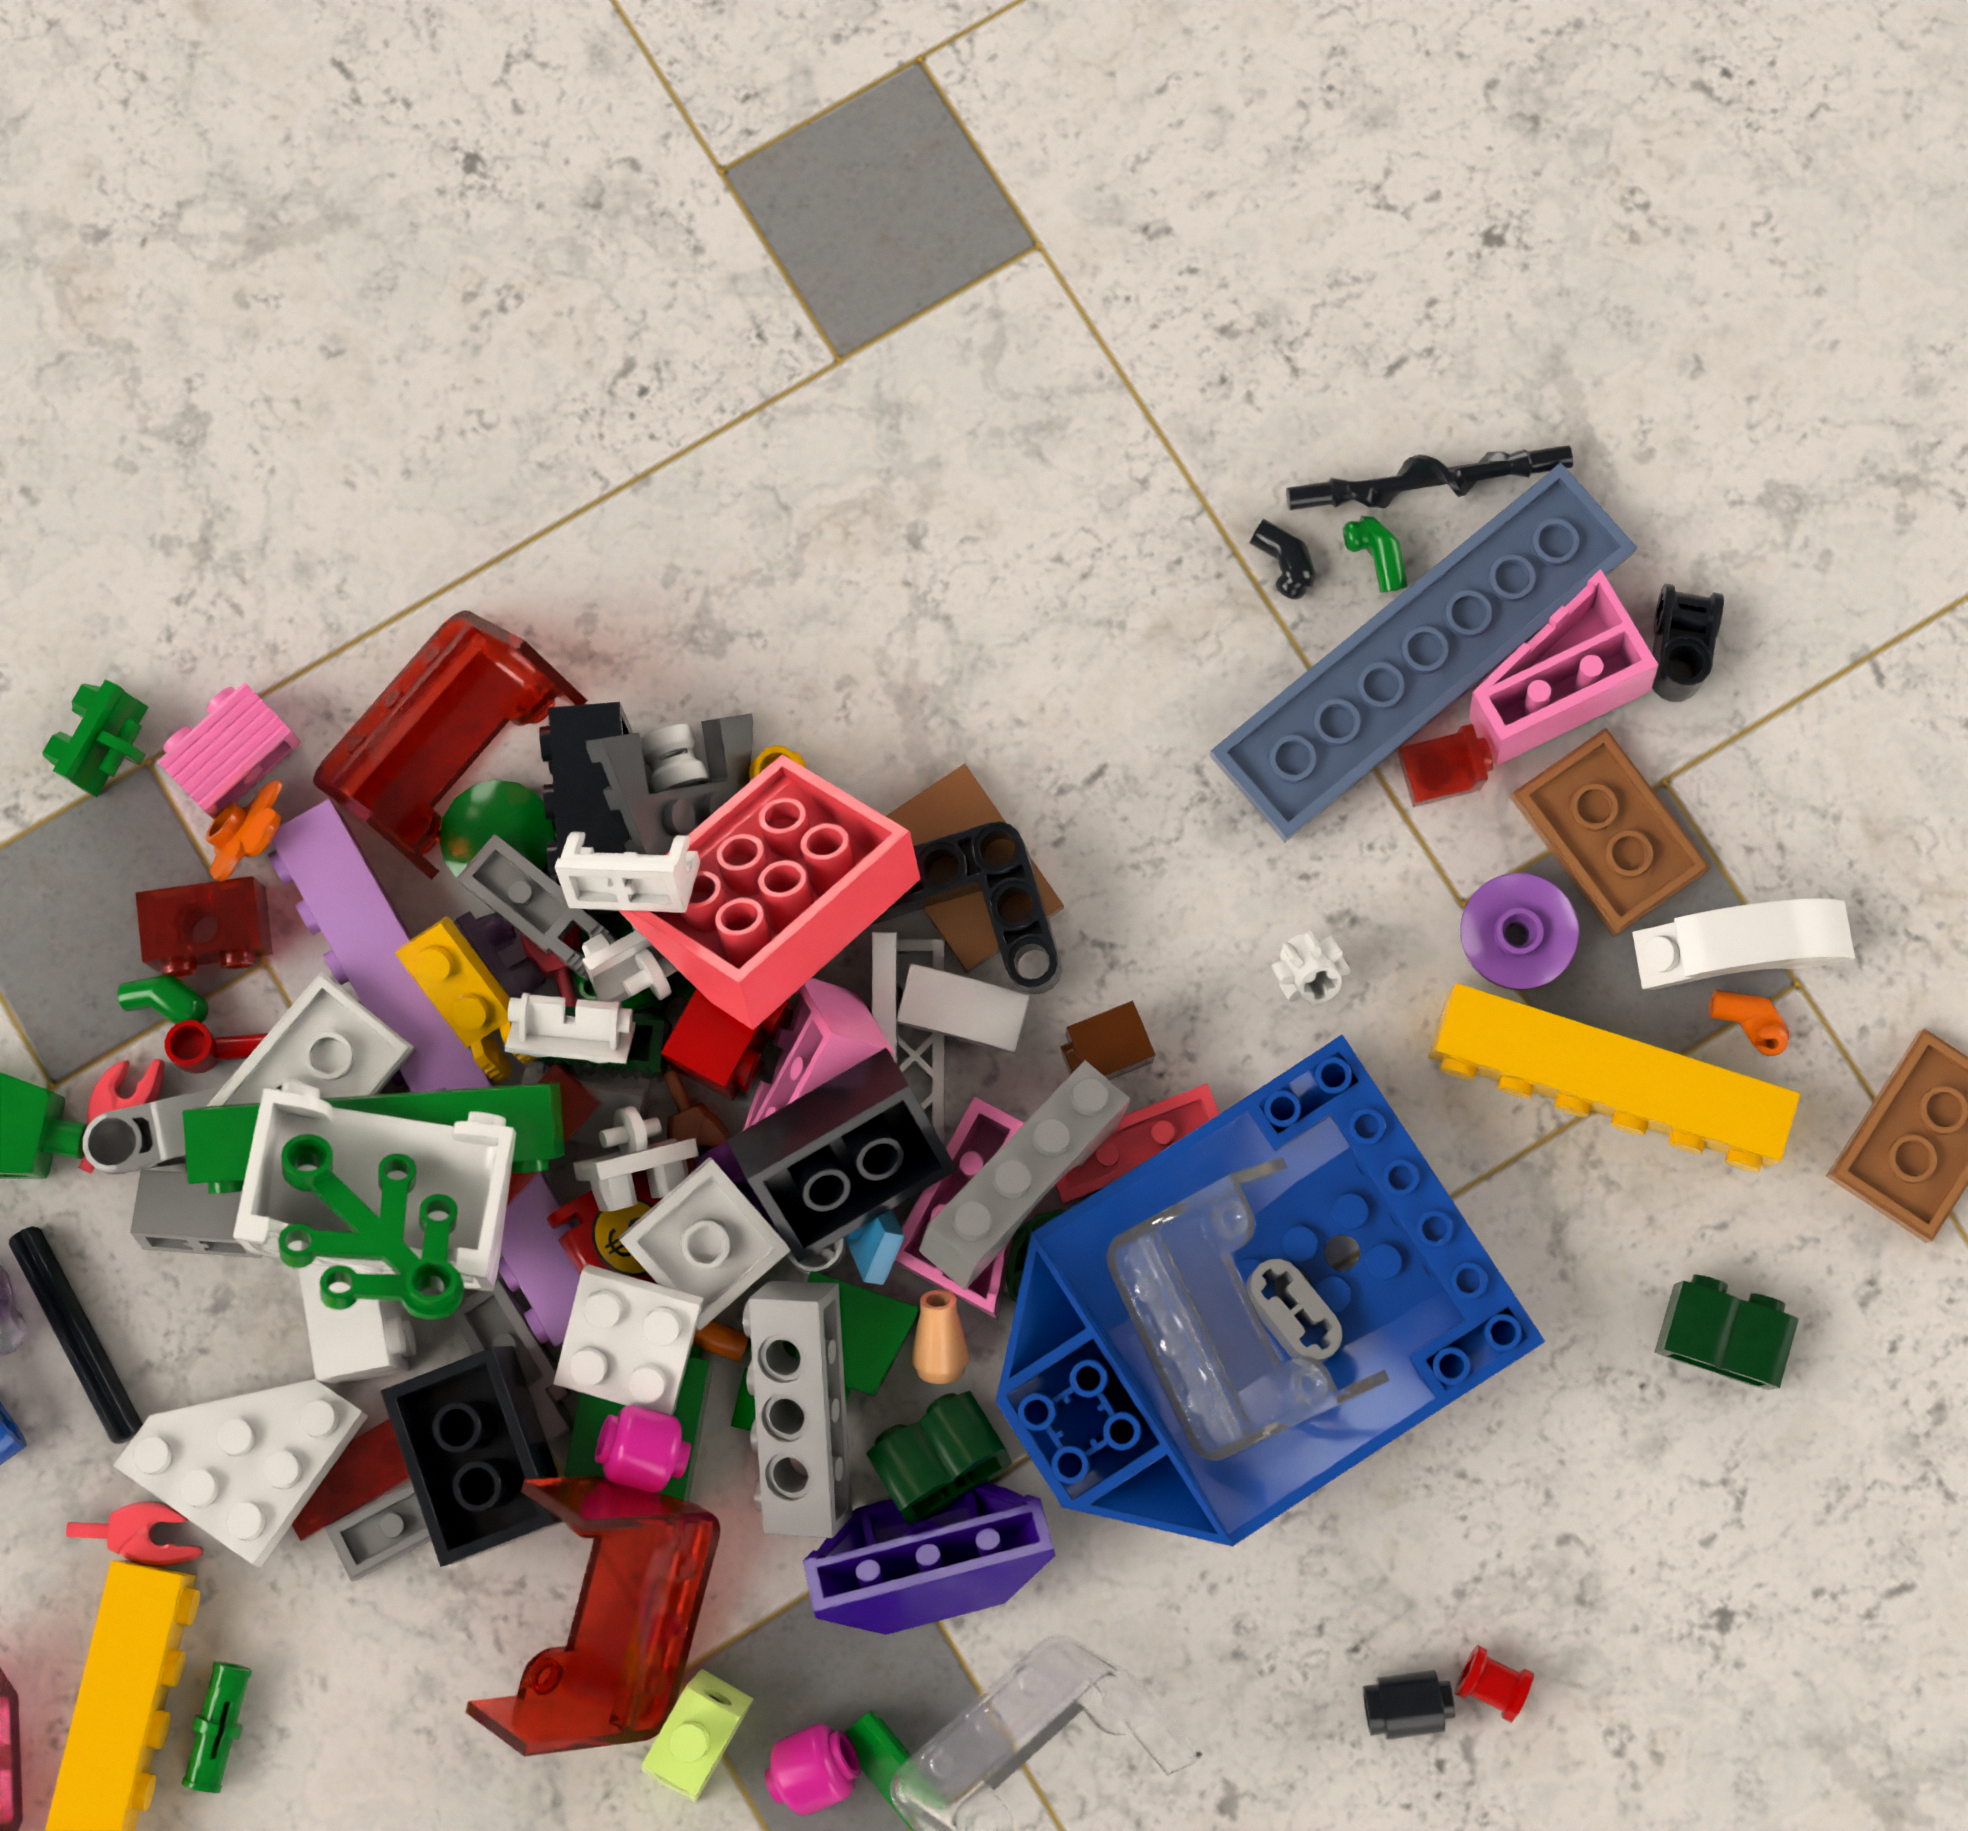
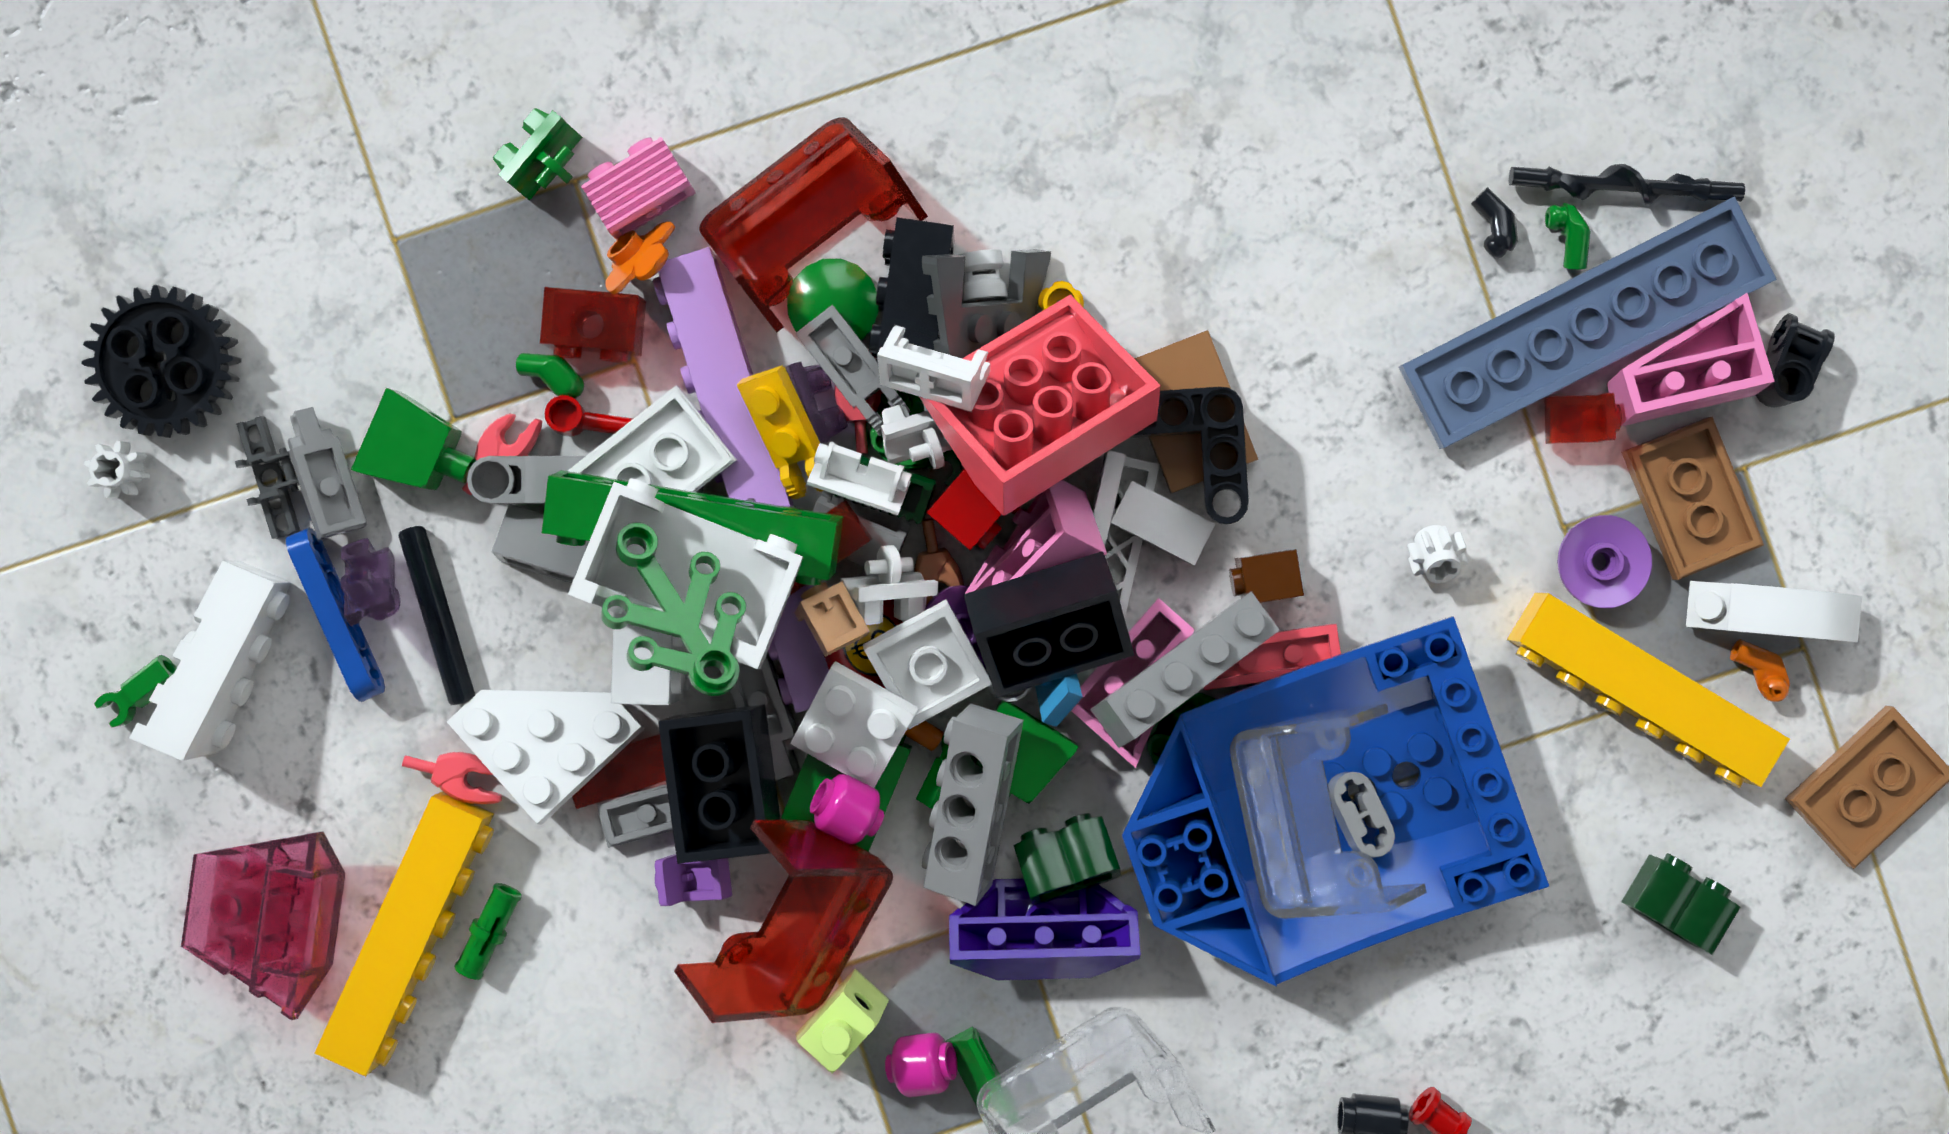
camera: 20 degrees right, 10 degrees up
(467, 1592) = (691, 880): none -> medium lavender bracket
(571, 1209) = (831, 617): none -> light nougat bracket
(939, 1340) = (1087, 773): light nougat cone -> none

